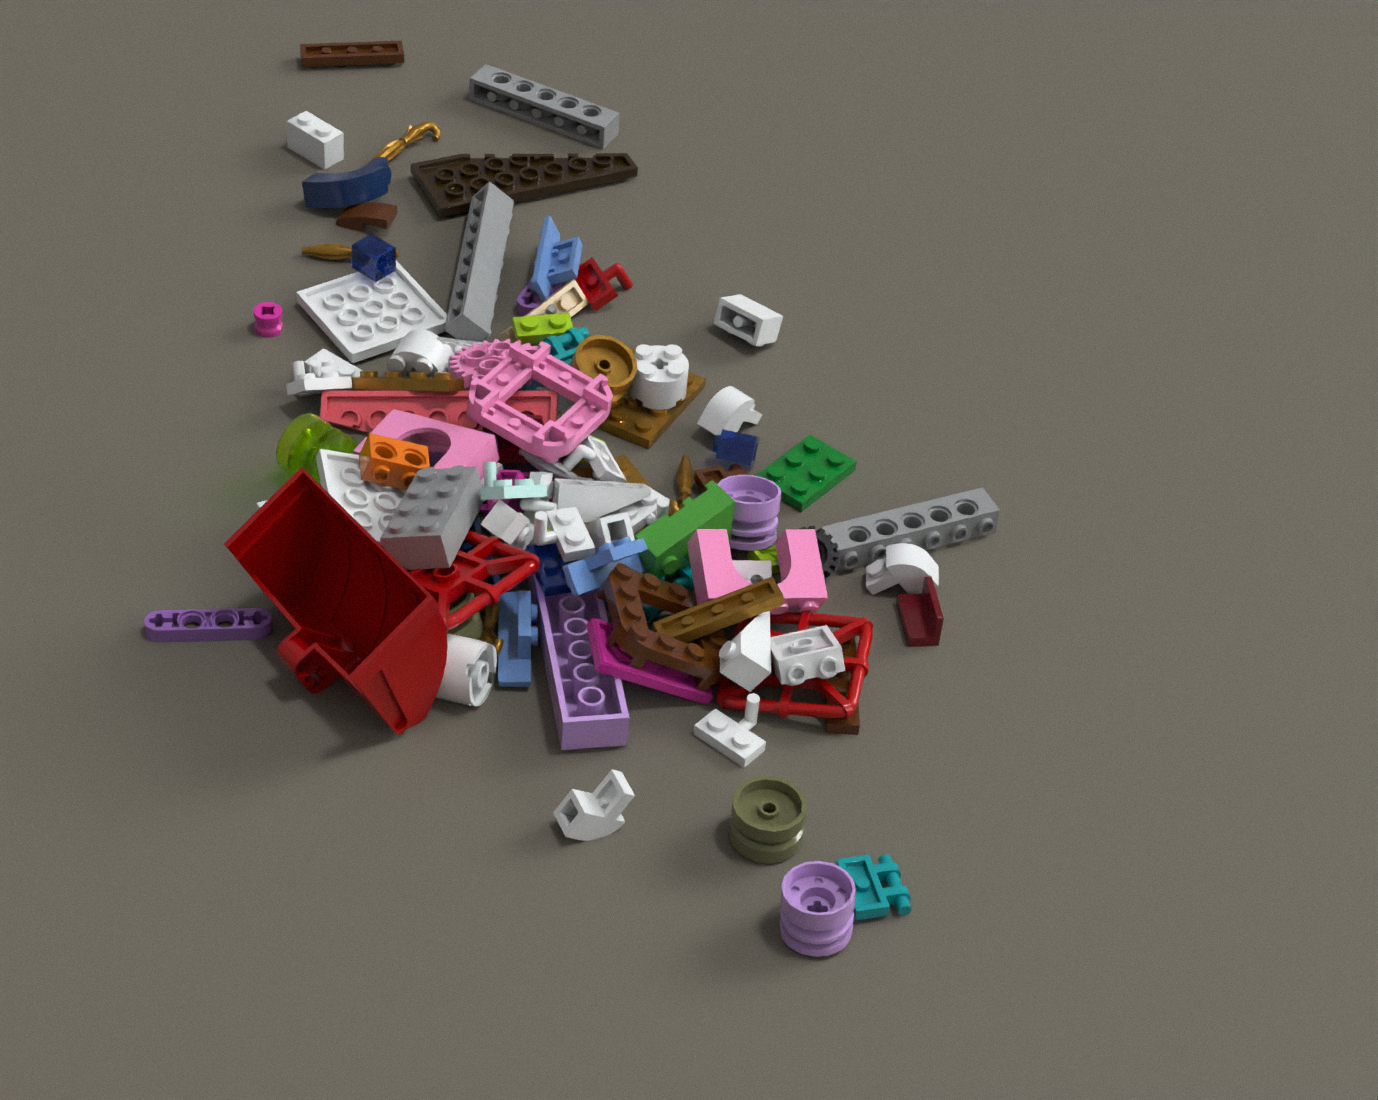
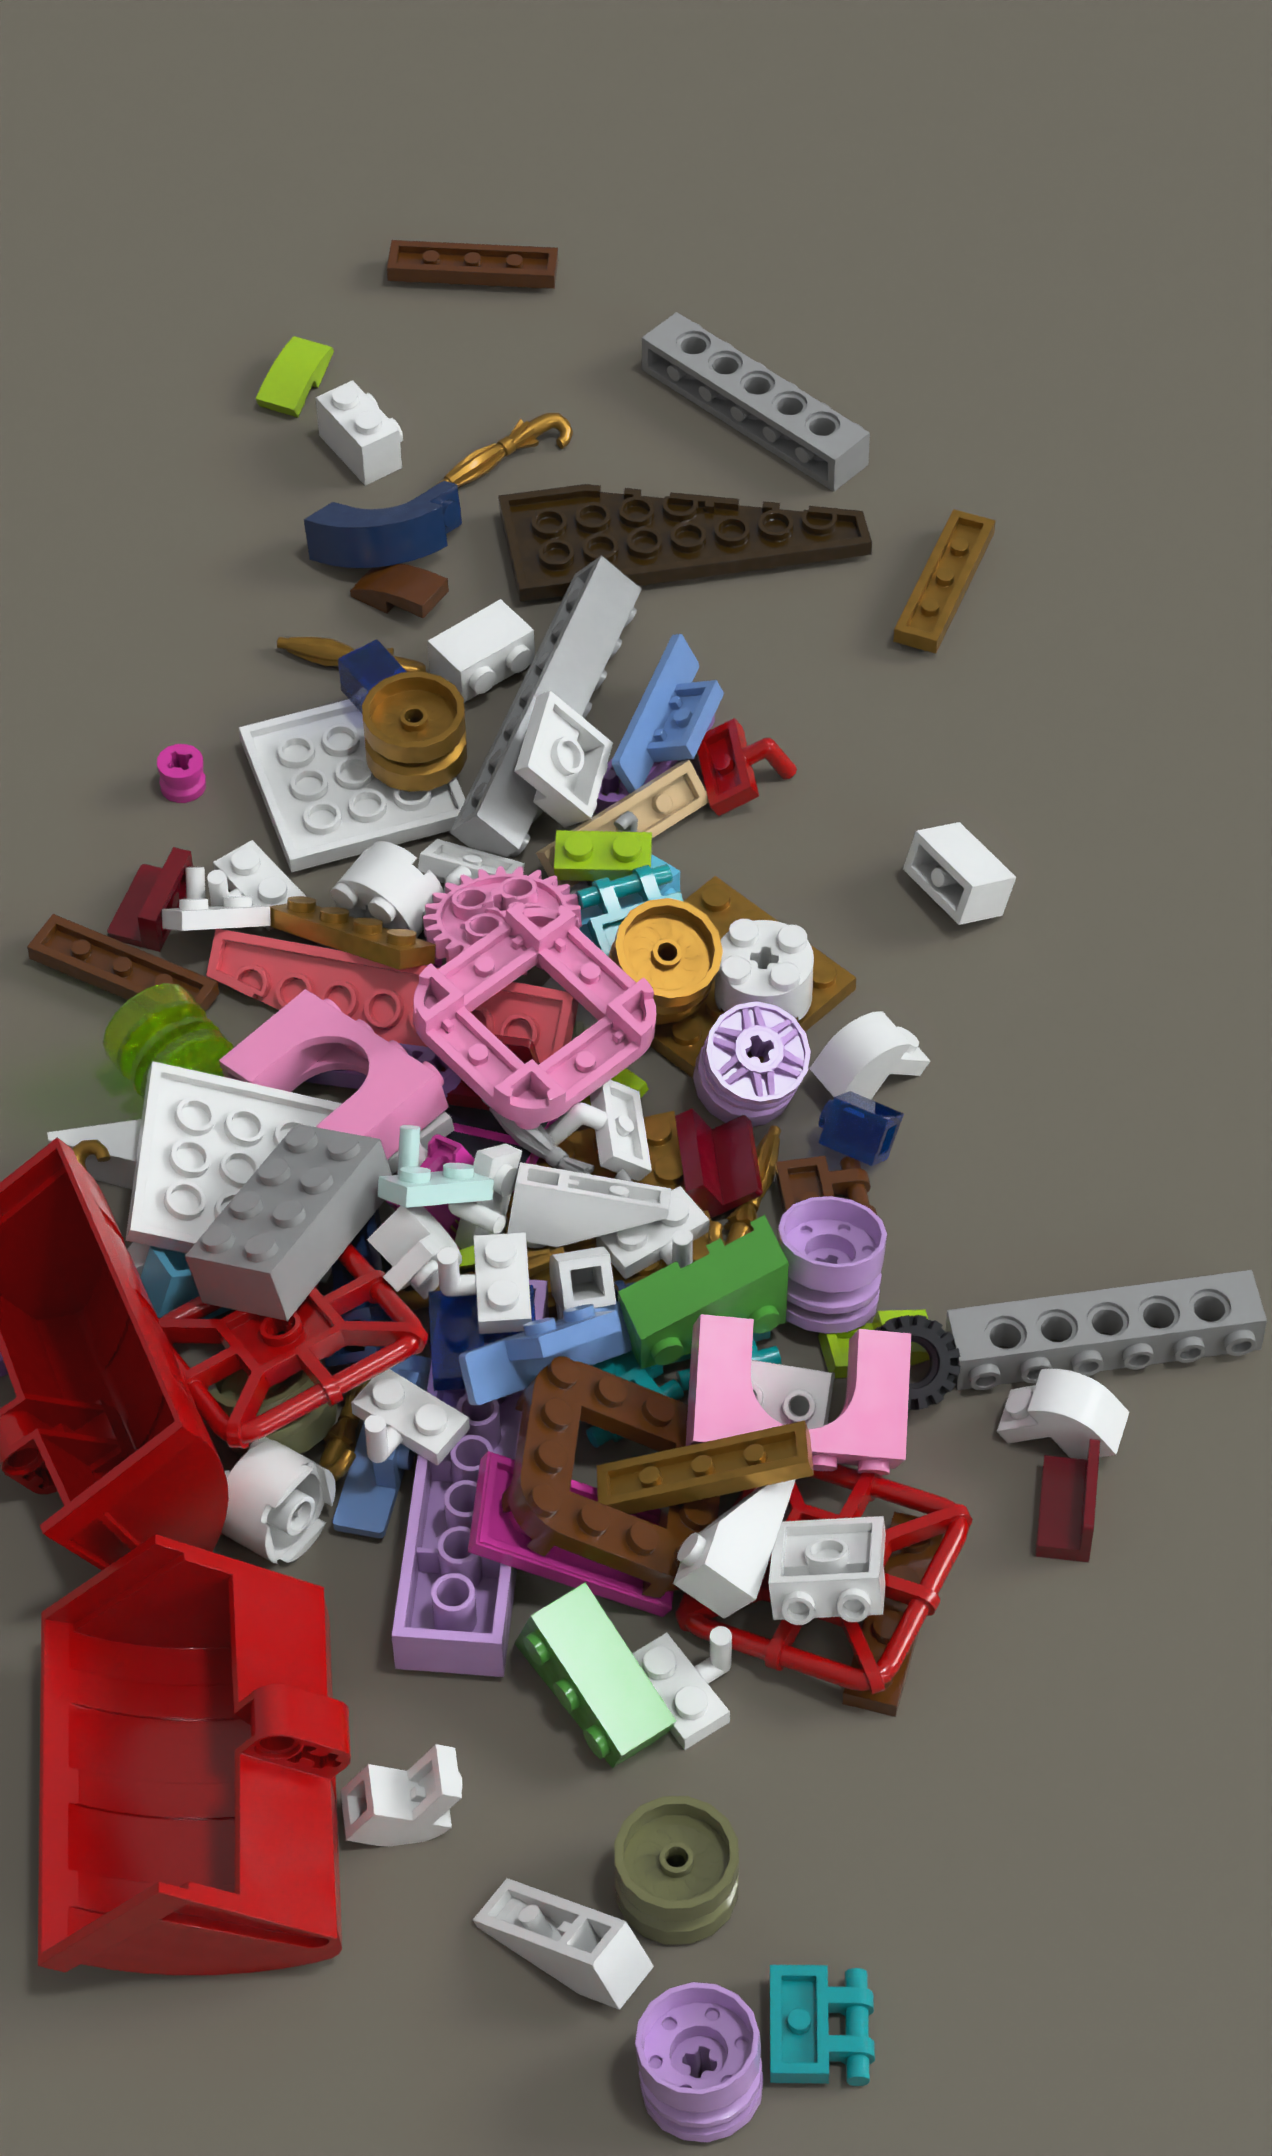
camera: 20 degrees right, 10 degrees up
(250, 417) = (112, 963): none -> reddish brown plate
(263, 117) = (293, 374): none -> lime slope
(270, 386) = (152, 889): none -> dark red panel
(391, 461) = (267, 1095): orange brick -> none
(410, 277) = (414, 731): none -> pearl gold wheel
(429, 240) = (482, 650): none -> white brick
(466, 805) = (189, 1769): none -> red piece
(505, 282) = (563, 760): none -> white plate
(534, 611) = (406, 1414): none -> white plate
(663, 473) = (718, 1162): none -> dark red panel
(667, 420) = (740, 1085): none -> lavender wheel
(683, 731) = (595, 1676): none -> wedge
(685, 184) = (944, 581): none -> pearl gold plate
(722, 866) = (568, 1941): none -> white slope
(808, 472) = (968, 1186): green plate -> none

